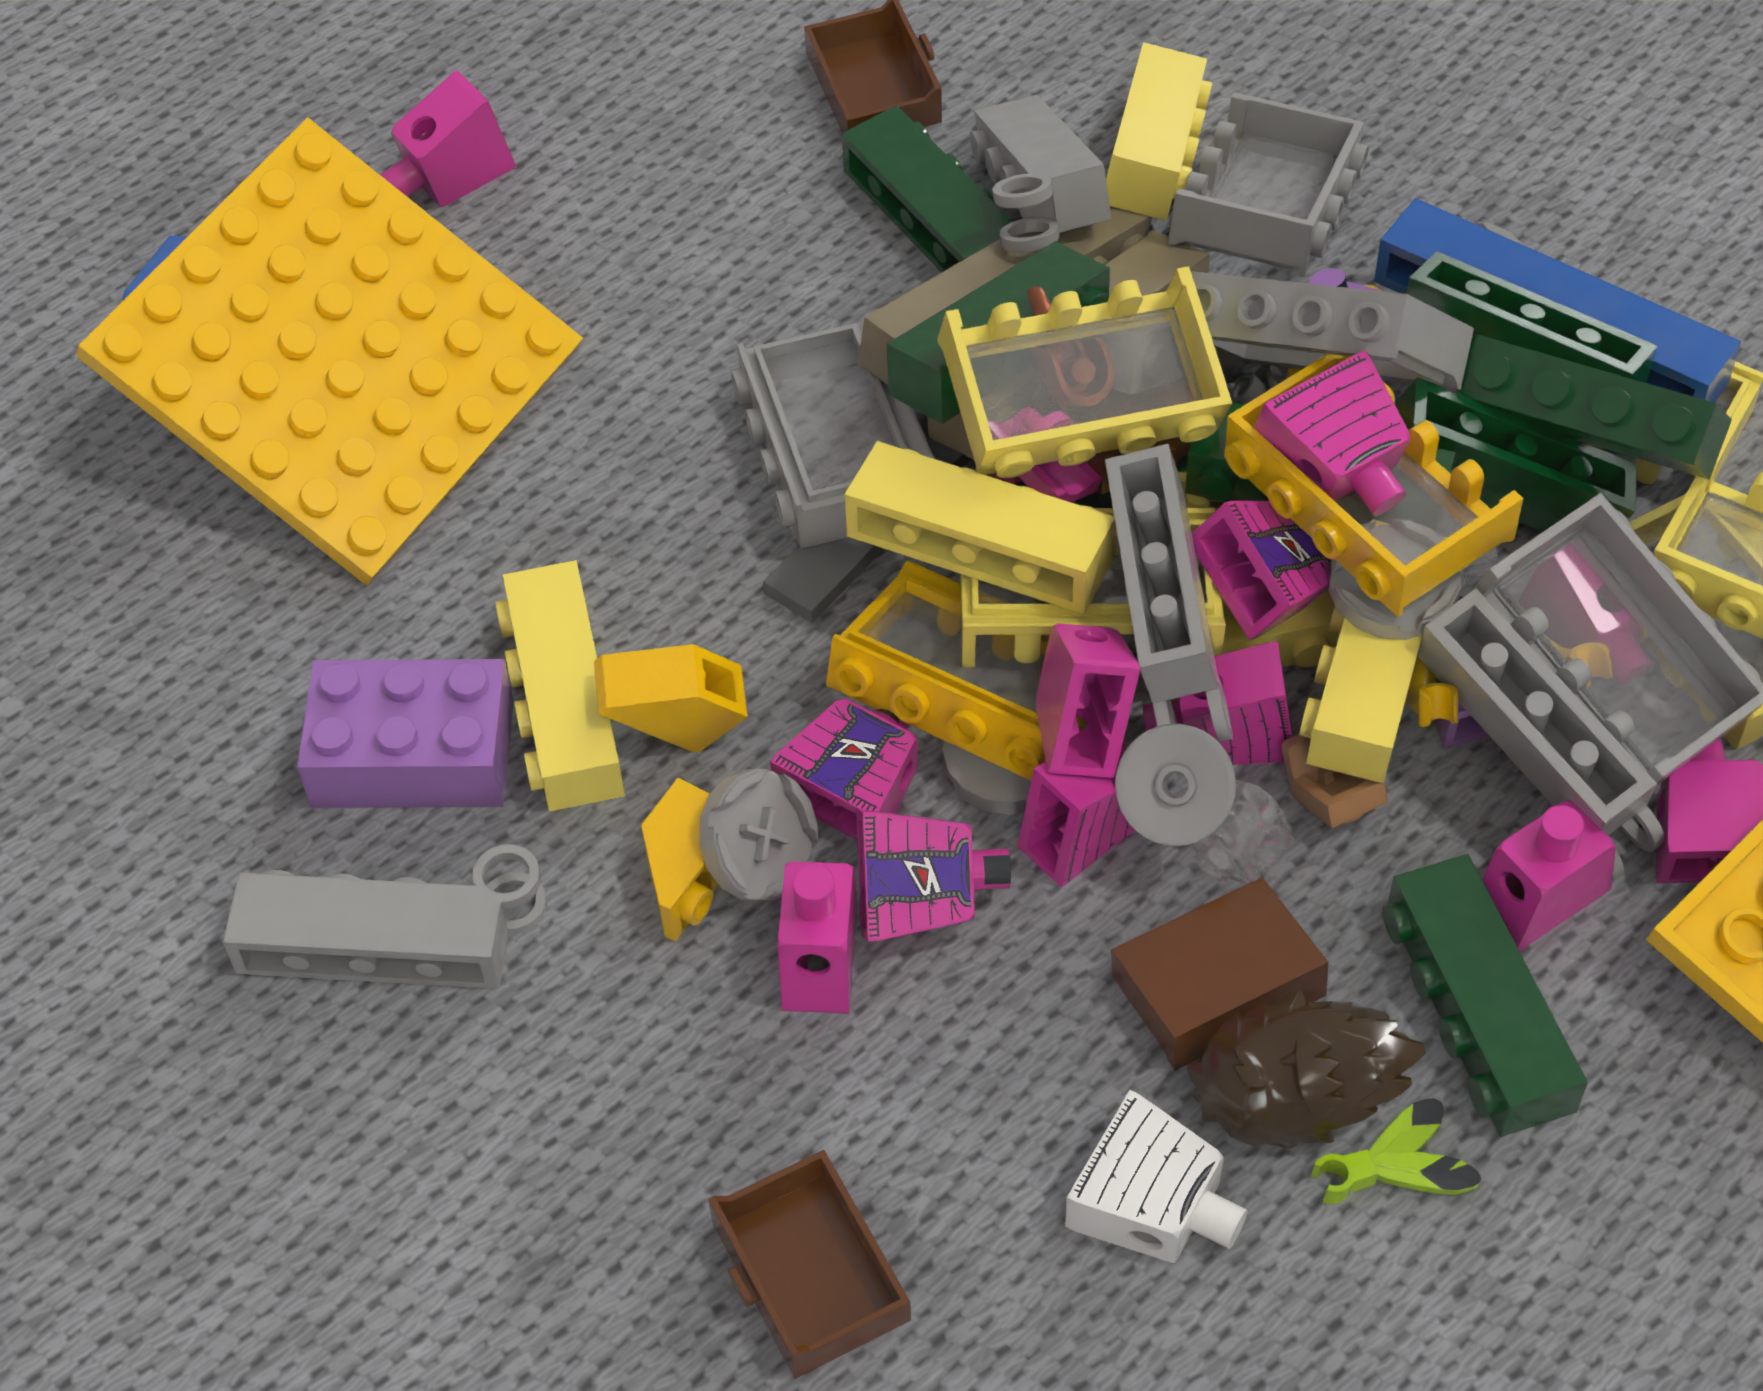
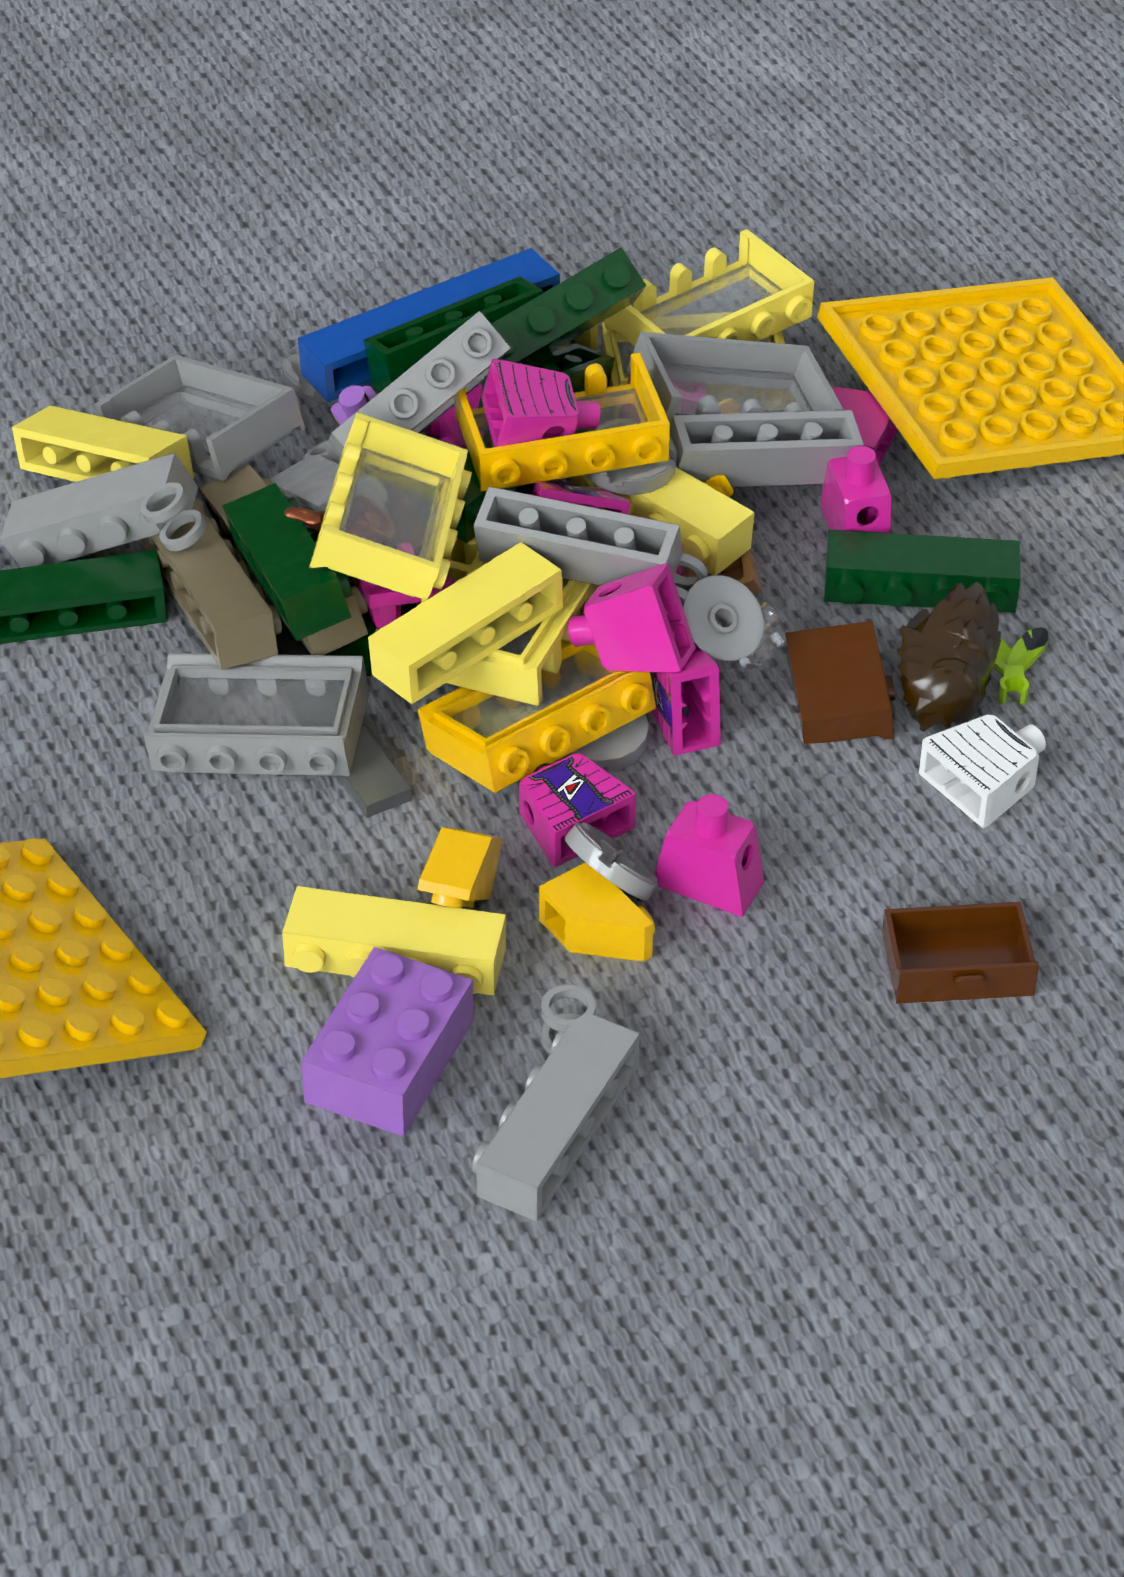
camera: 70 degrees left, 10 degrees down
(920, 873) = (685, 775): torso -> none

